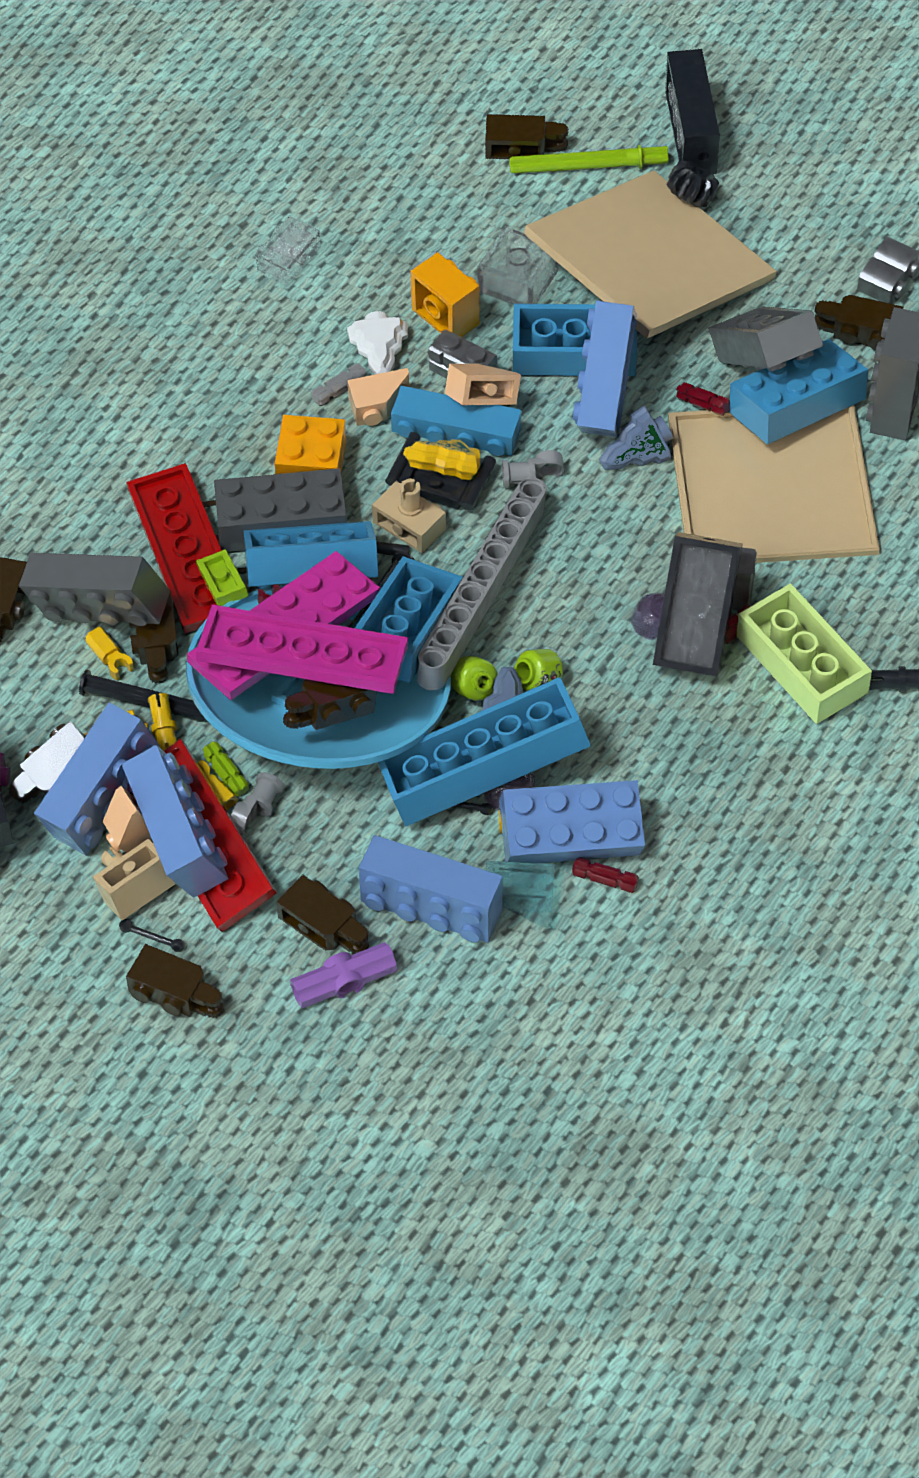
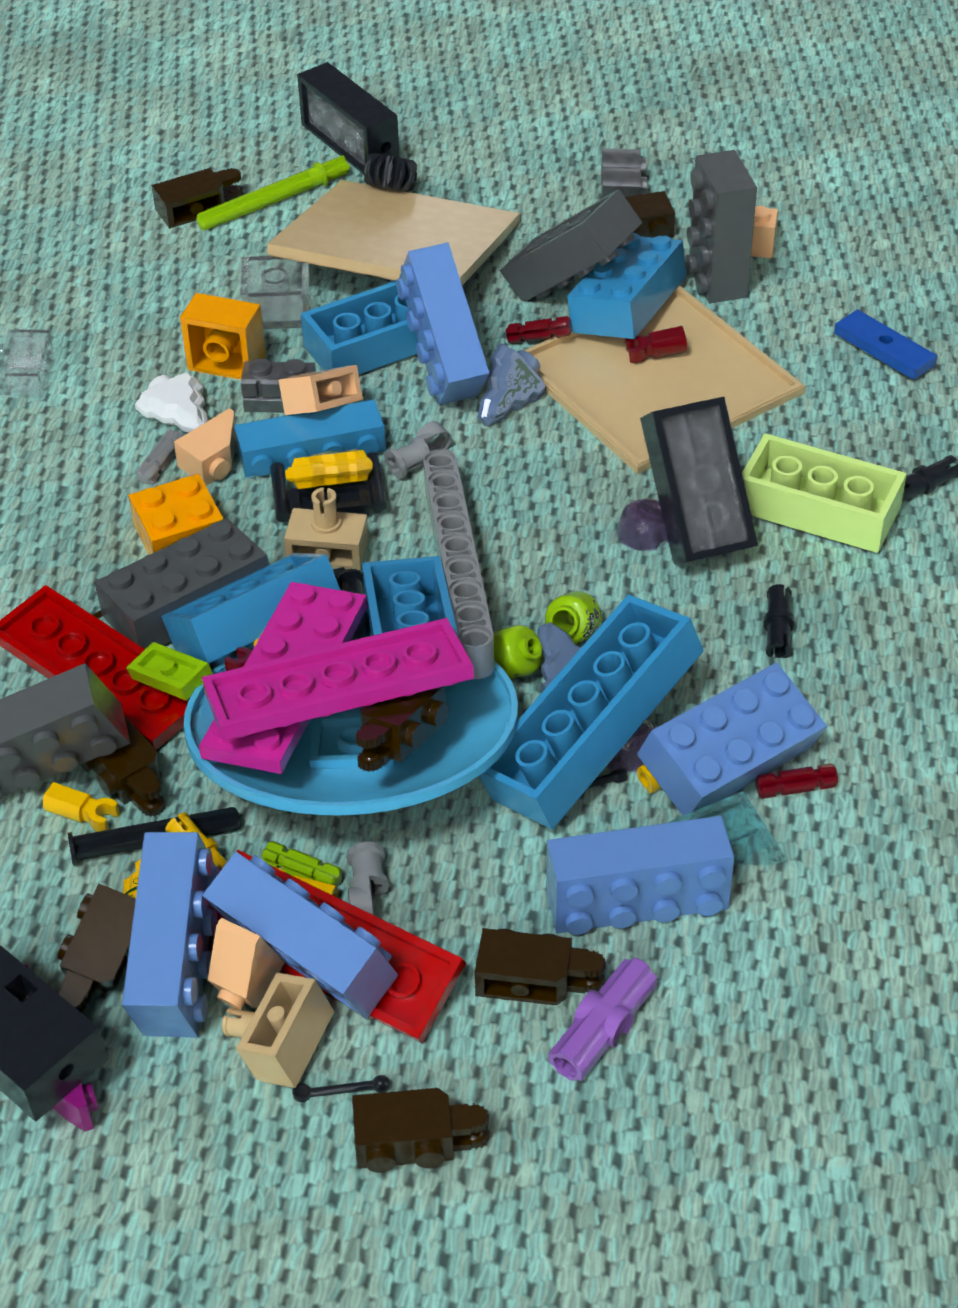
camera: 30 degrees left, 10 degrees down
(691, 745) = (778, 621): none -> black pin
(786, 456) = (658, 344): none -> dark red bar

